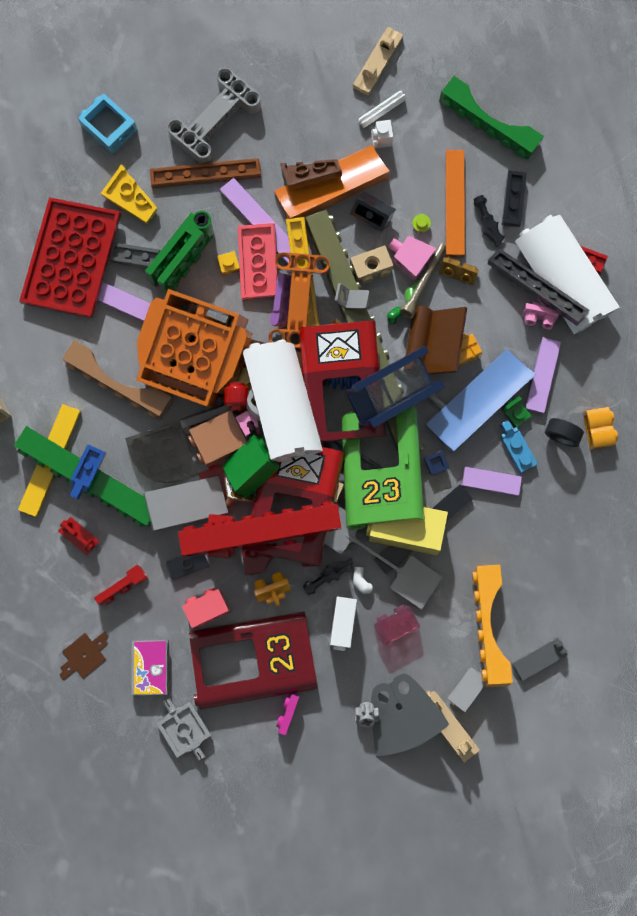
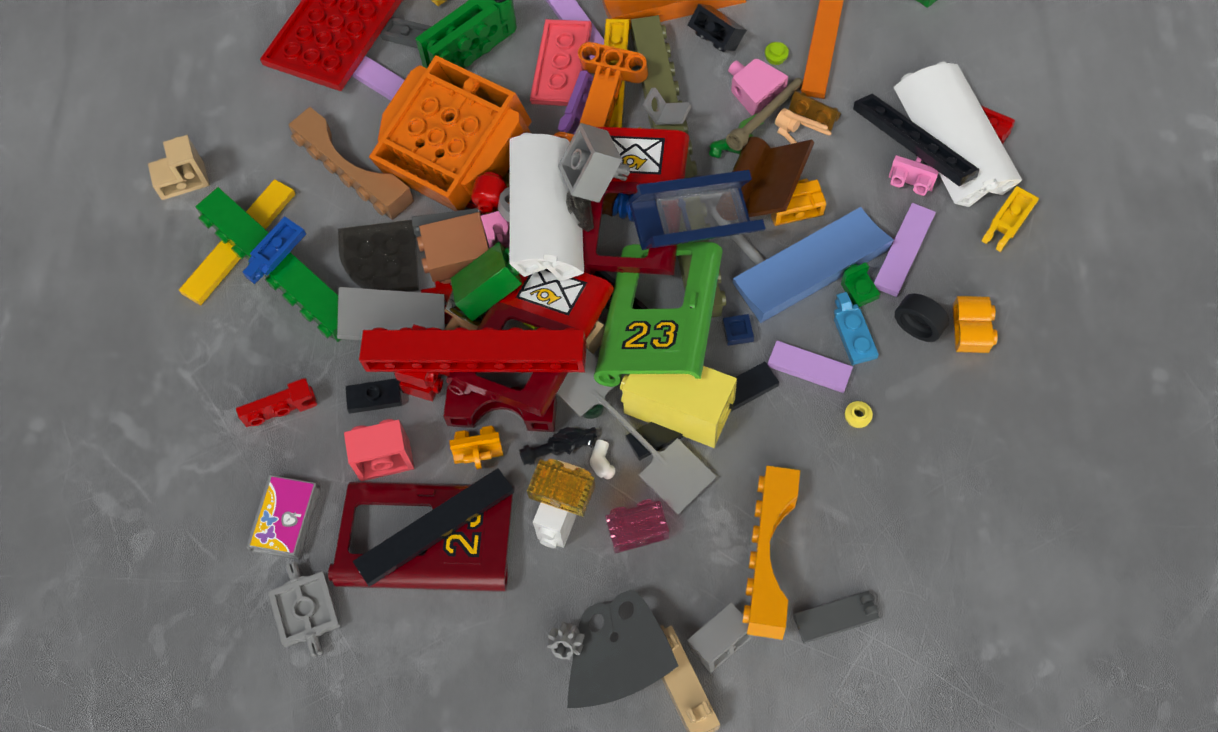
camera: 20 degrees right, 15 degrees down
(78, 535) = (243, 334): red hinge -> none
(82, 664) = (212, 494): reddish brown piece -> none
(228, 263) = (524, 60): yellow plate -> none
(259, 656) = (433, 527): none -> black tile
(284, 722) = (460, 607): dark pink plate -> none
(308, 397) = (582, 211): none -> clear smoke plate
(311, 366) = (591, 163): none -> light grey brick
(346, 618) = (561, 486): none -> clear yellow brick
(377, 256) = (703, 85): tan brick -> none
(442, 284) = (790, 121): none -> light nougat plant
(489, 225) = (862, 67): black piece -> none
(514, 198) = (900, 43): black plate -> none
(525, 513) = (855, 421): none -> light yellow plate
(614, 335) = (1011, 216): none -> yellow hinge

